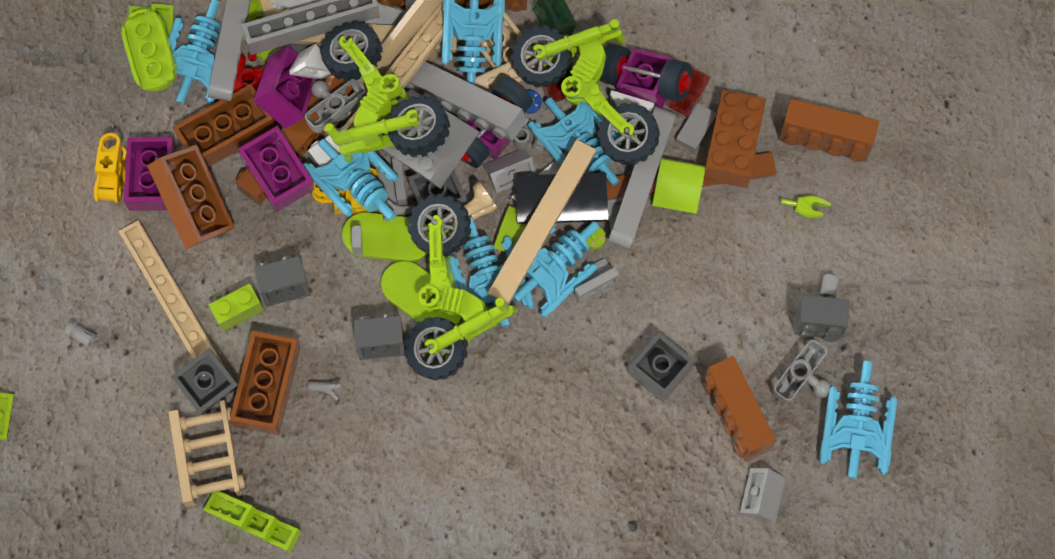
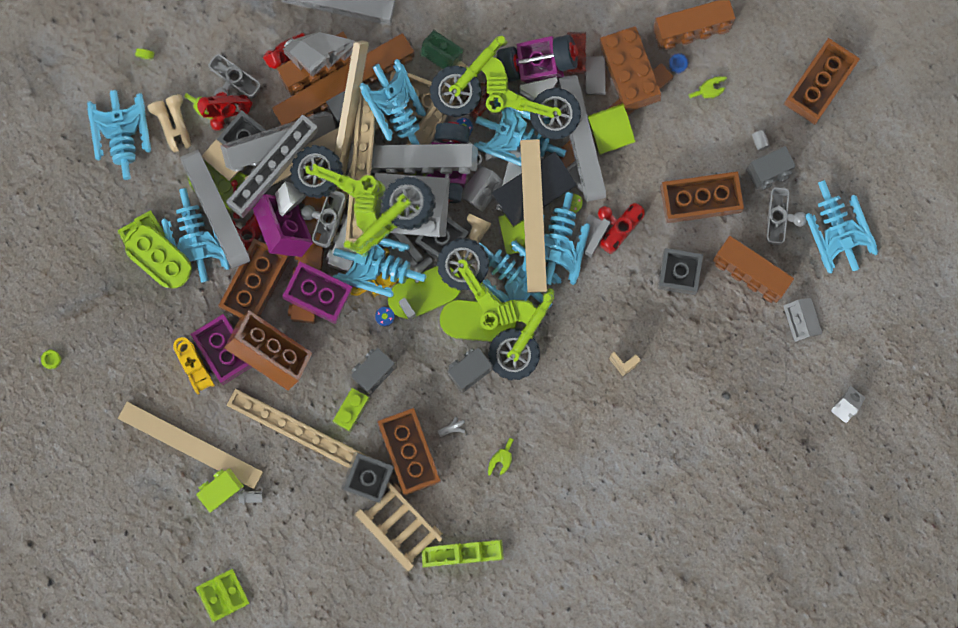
camera: 30 degrees left, 10 degrees up
(53, 307) = (219, 490): none -> lime brick
(58, 250) = (189, 444): none -> tan tile
(332, 238) = (384, 316): none -> blue tile
(358, 447) = (503, 457): none -> lime hand
(545, 429) = (624, 368): none -> tan panel
(640, 284) = (628, 218): none -> red piece
(730, 306) = (702, 197): none -> dark orange brick
(789, 163) = (678, 63): none -> blue tile
(929, 262) = (821, 81): none -> dark orange brick

